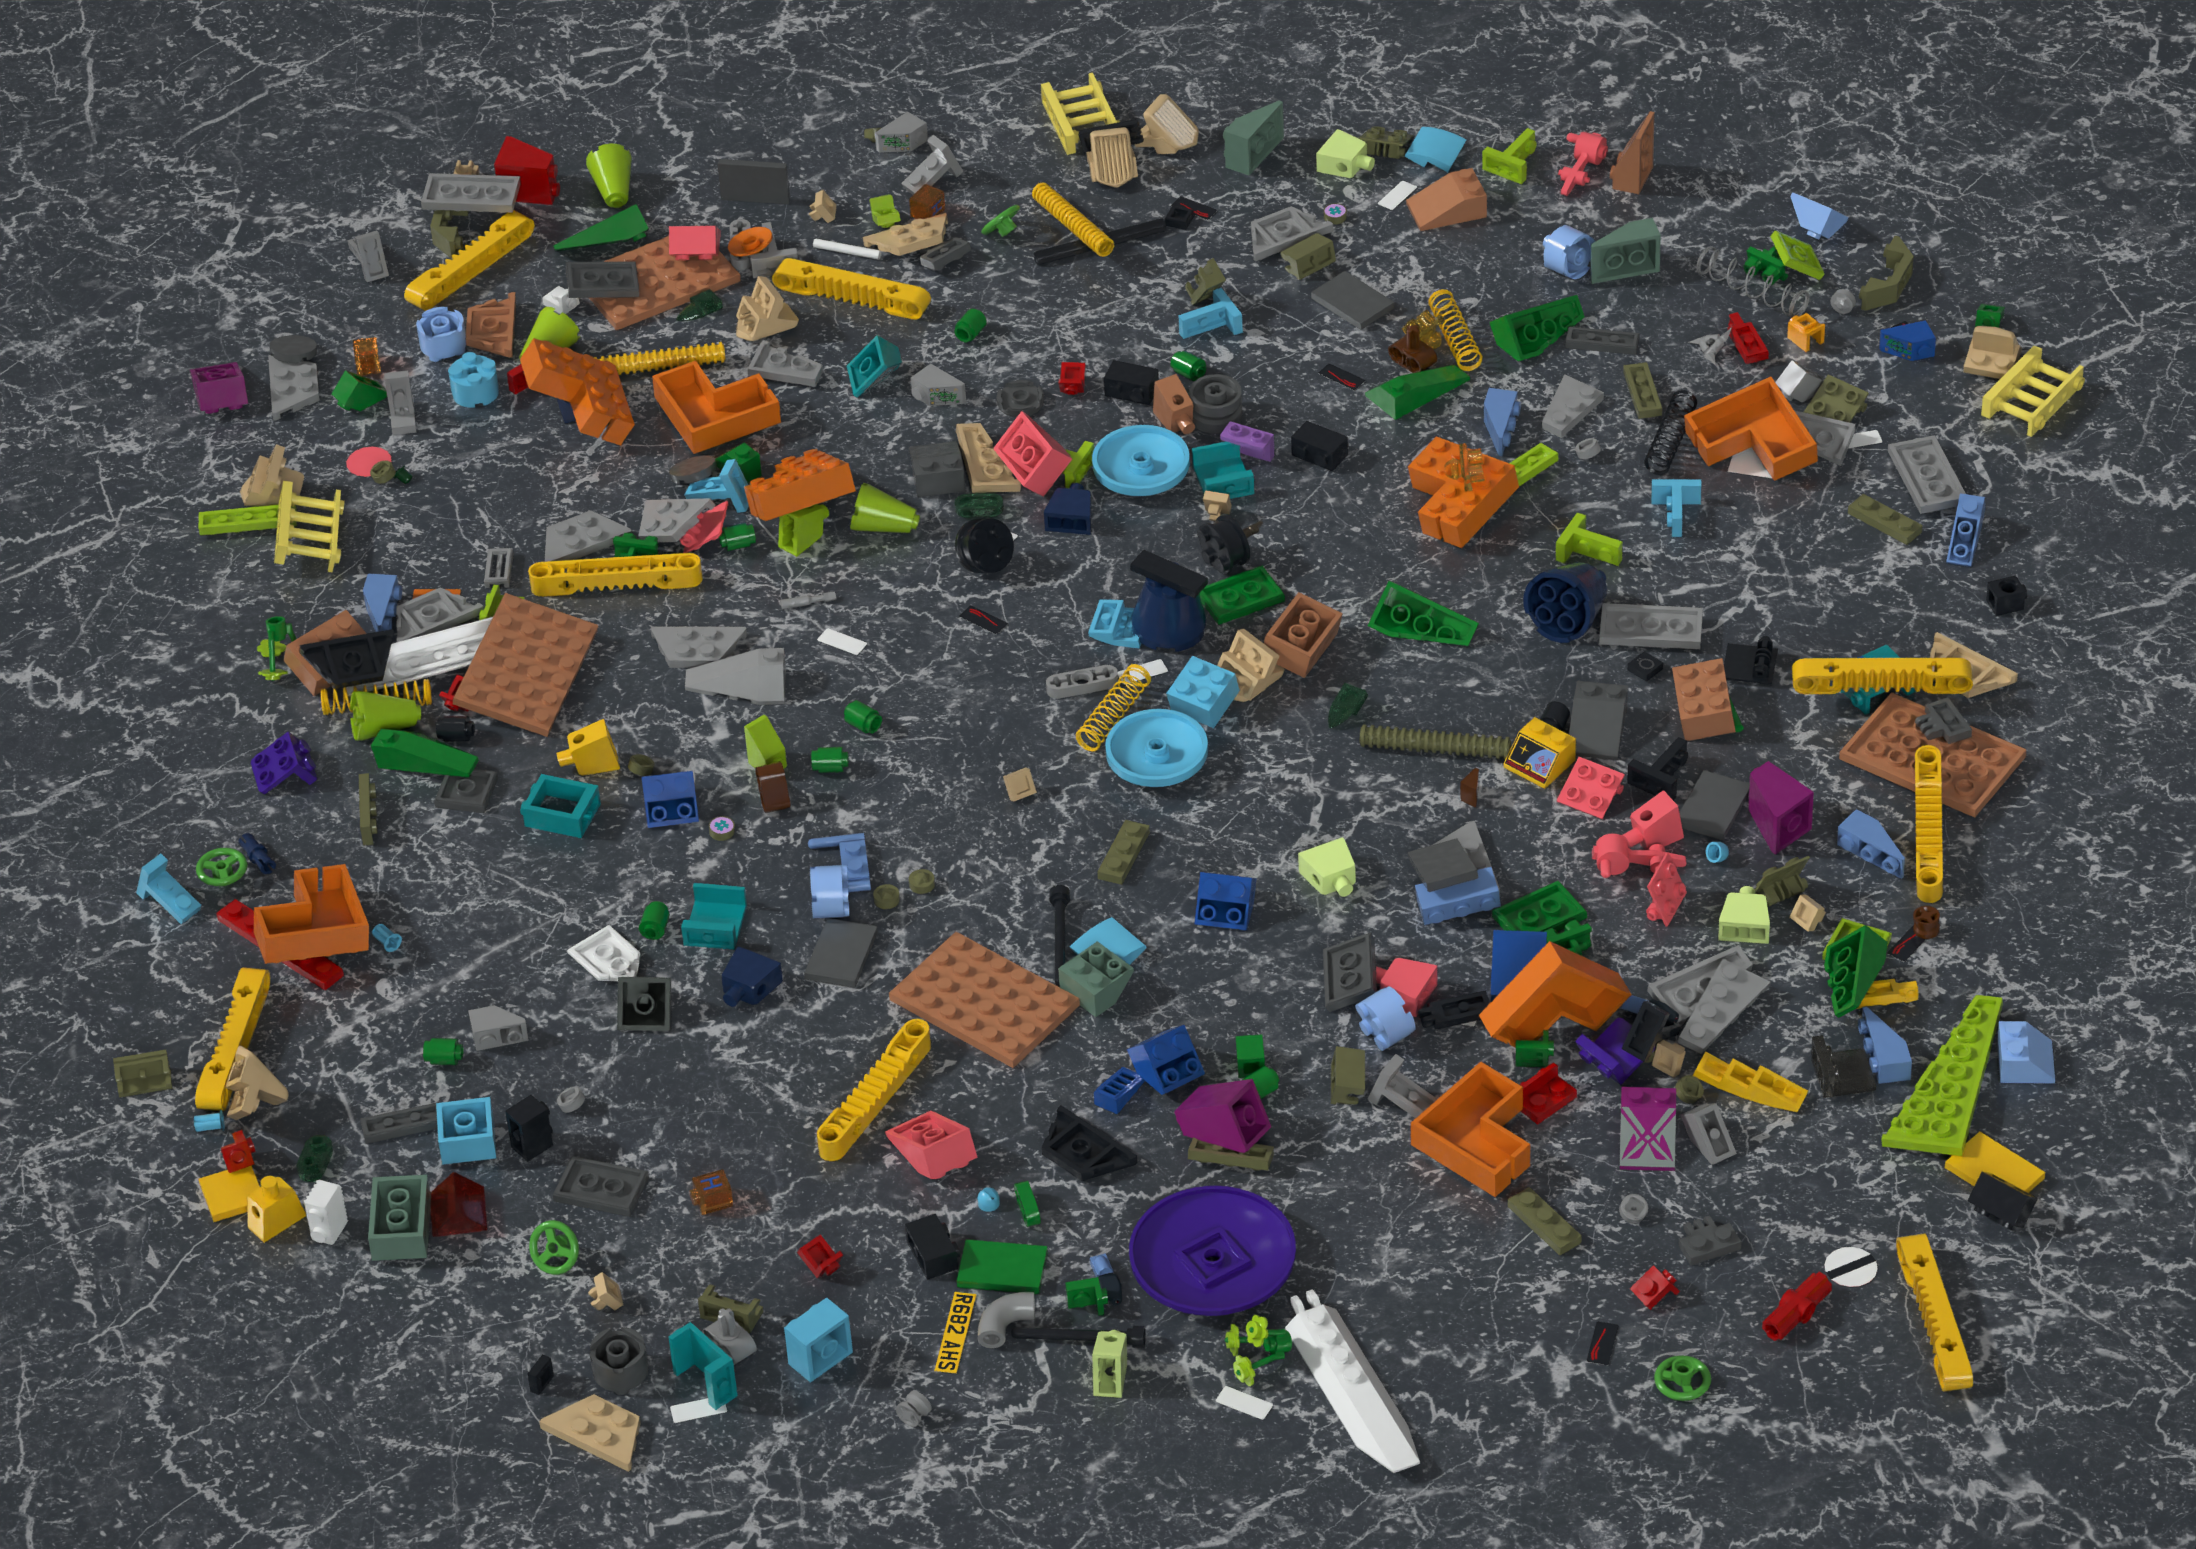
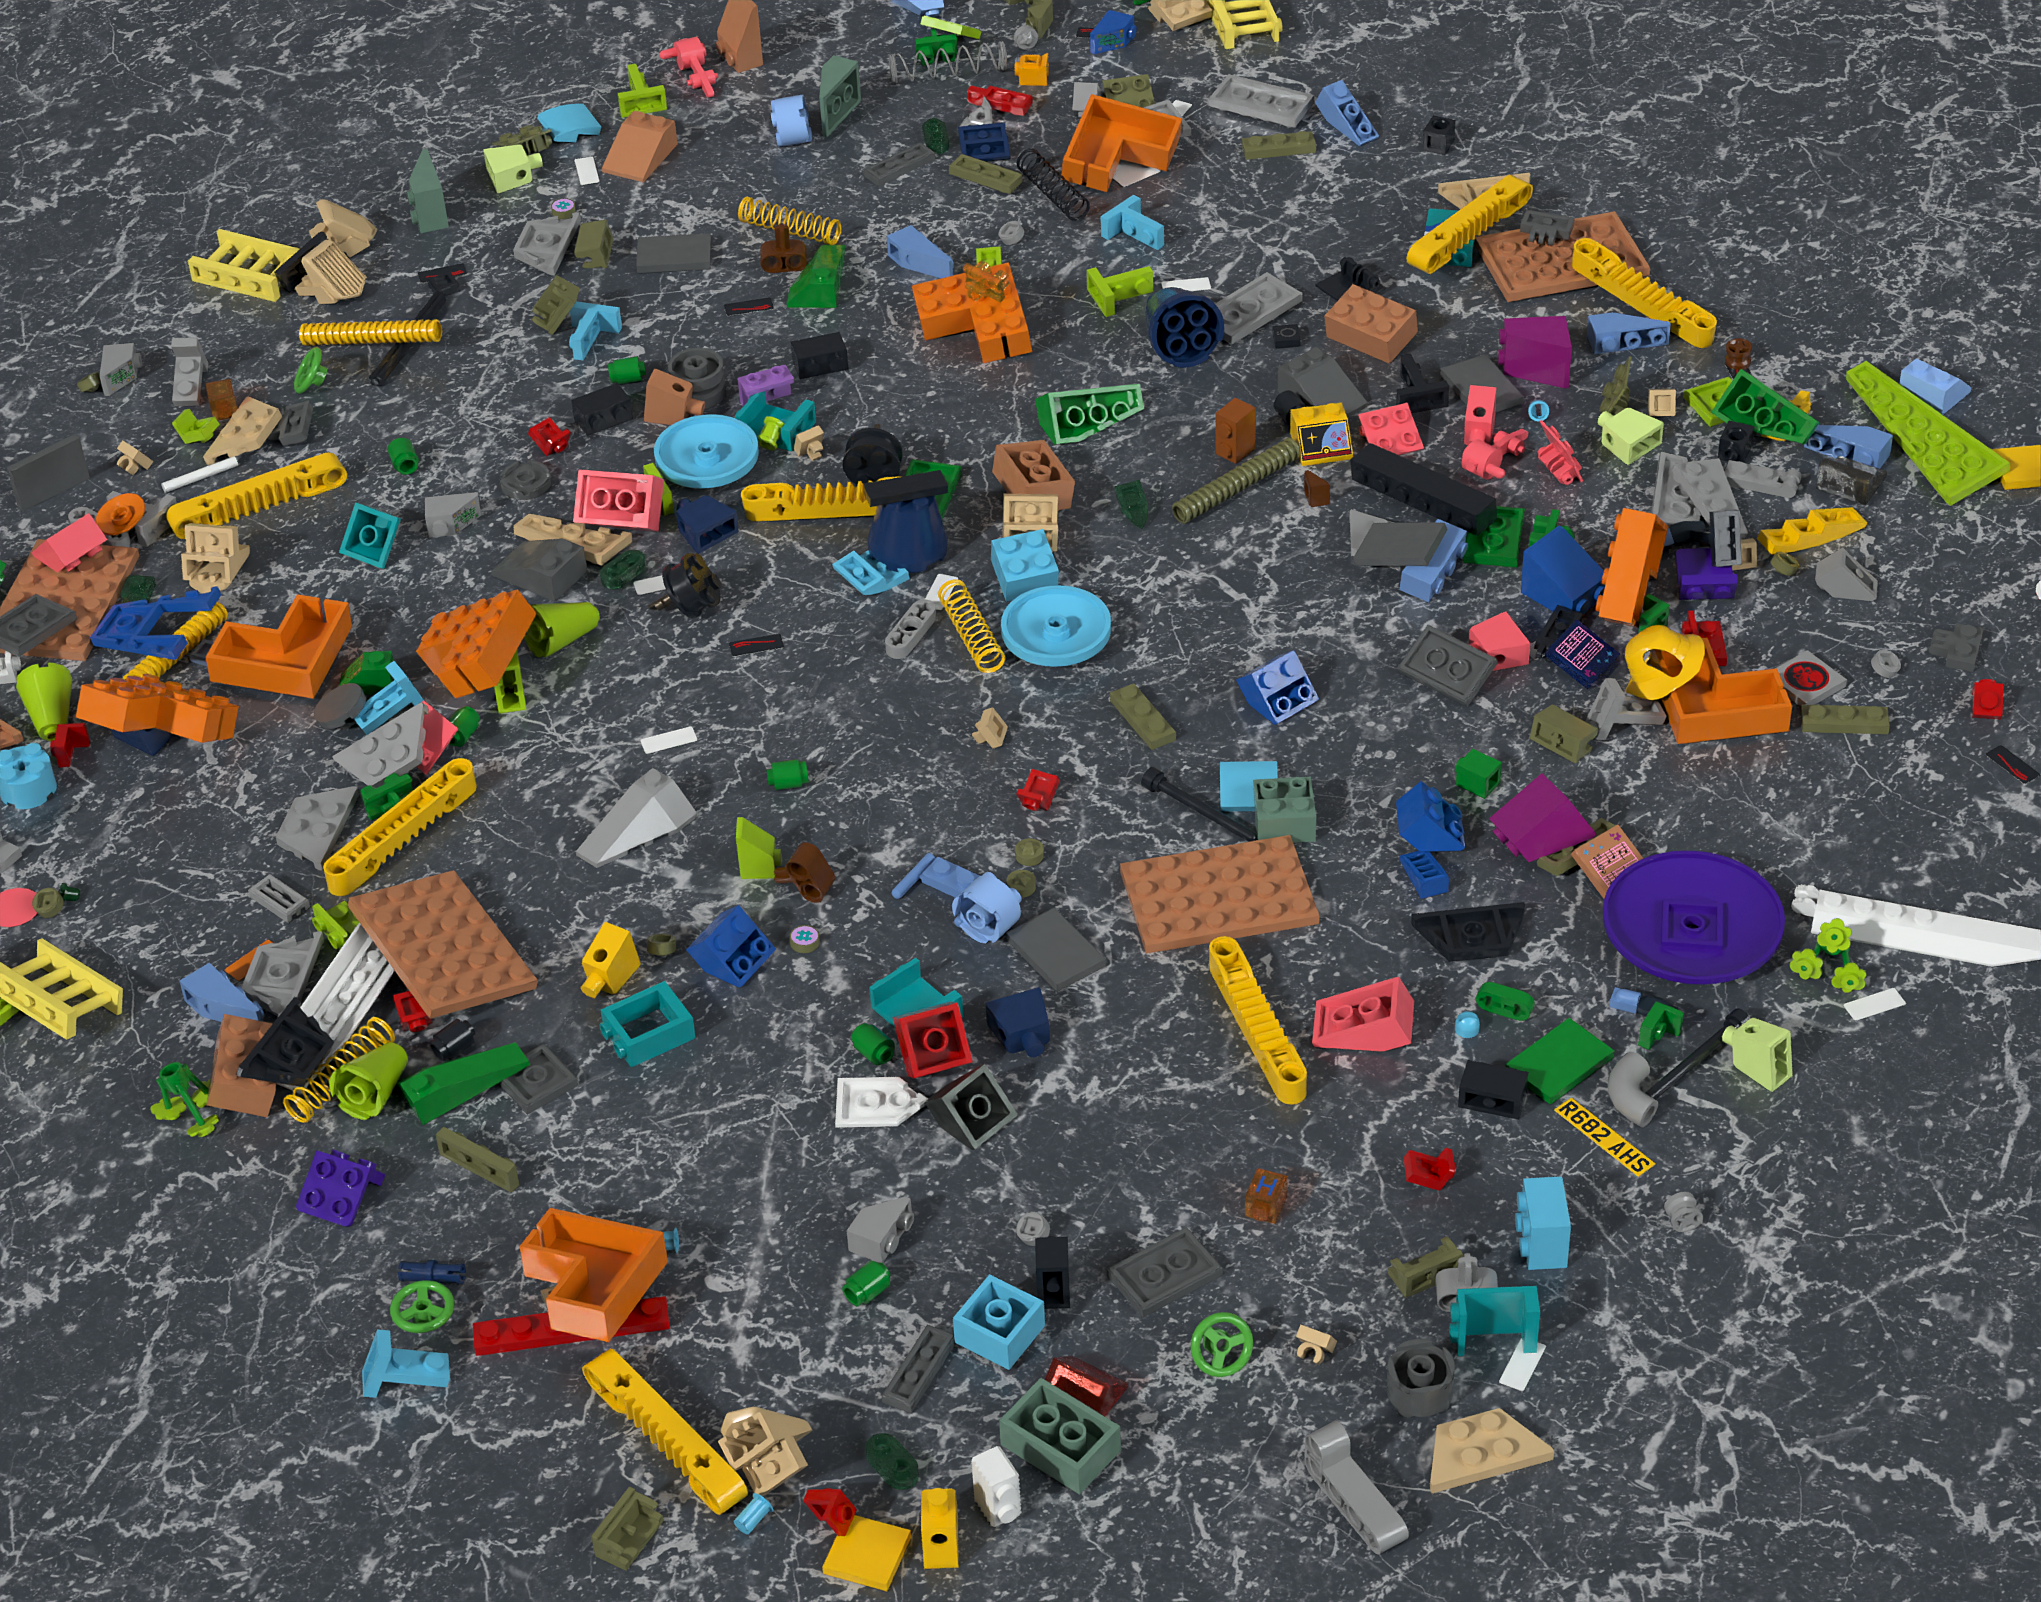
camera: 50 degrees left, 0 degrees up
(495, 1382) = (1351, 1490): none -> light grey beam
(540, 1374) = (1374, 1449): black tile -> none
(666, 321) = (129, 623): none -> blue wing
(674, 942) = (932, 1039): none -> red brick
(696, 645) = (553, 829): light grey wing -> none
(784, 367) = (281, 589): light grey wing -> none
(806, 600) = (591, 732): light grey piece -> none
(829, 759) = (813, 823): green brick -> none
(982, 847) = (1038, 790): none -> red bracket
(1137, 535) = (764, 501): none -> yellow gear
(1196, 479) = (770, 433): none -> lime bush
(1230, 1169) = (1606, 857): none -> nougat tile
(1265, 1080) = (1514, 781): green brick -> none
(1329, 867) = (1312, 611): yellowish green torso -> none
(1385, 1018) = (1531, 671): light blue brick -> none
(1427, 328) = (769, 220): clear yellow hips -> none
(1446, 1036) = (1582, 654): none -> clear blue tile
(1461, 1063) = (1650, 682): none -> yellow piece
(1478, 704) = (1235, 430): none -> dark orange brick
(1534, 329) = (841, 185): green wedge -> none
(1534, 843) = (1424, 489): none -> black brick
(1566, 1175) = (1809, 679): none -> tile
(1570, 405) = (948, 215): light grey wing -> none
(1646, 578) = (1189, 284): none -> white sticker
(1648, 1128) = (1806, 607): slope -> none
(1660, 336) = (935, 135): none -> clear green plate
(1682, 365) = (984, 141): none -> dark blue slope
(1784, 1021) = (1763, 479): none -> light grey plate
(1806, 981) = (1735, 442): none -> black brick

